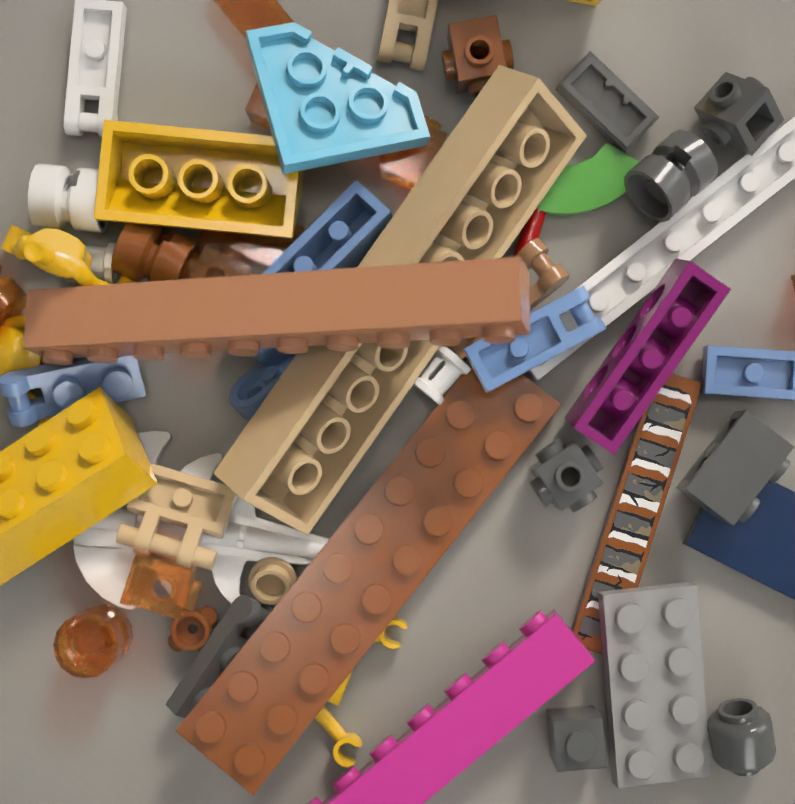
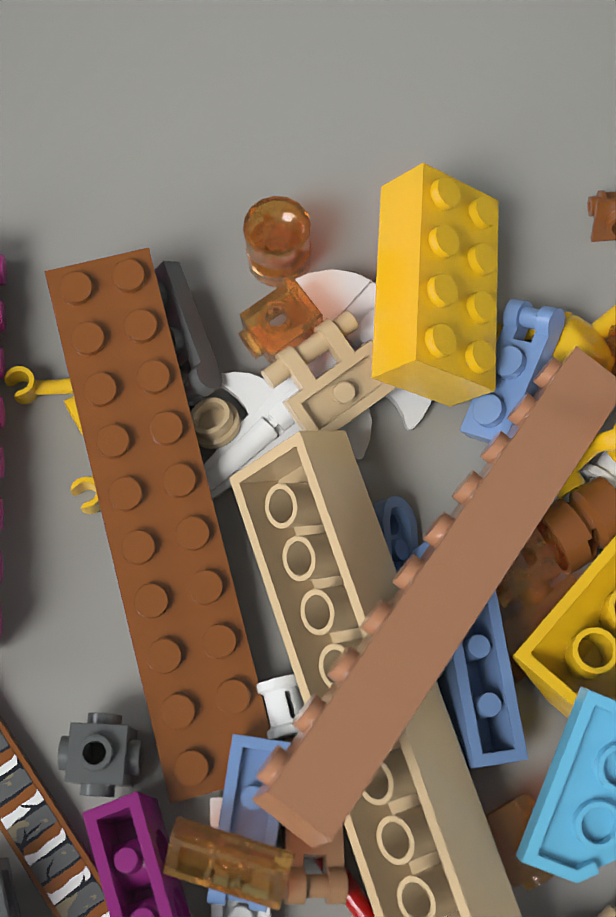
camera: 125 degrees right, 15 degrees down
(183, 639) = (220, 317): dark orange plate -> none
(574, 328) = (228, 863): none -> clear orange plate

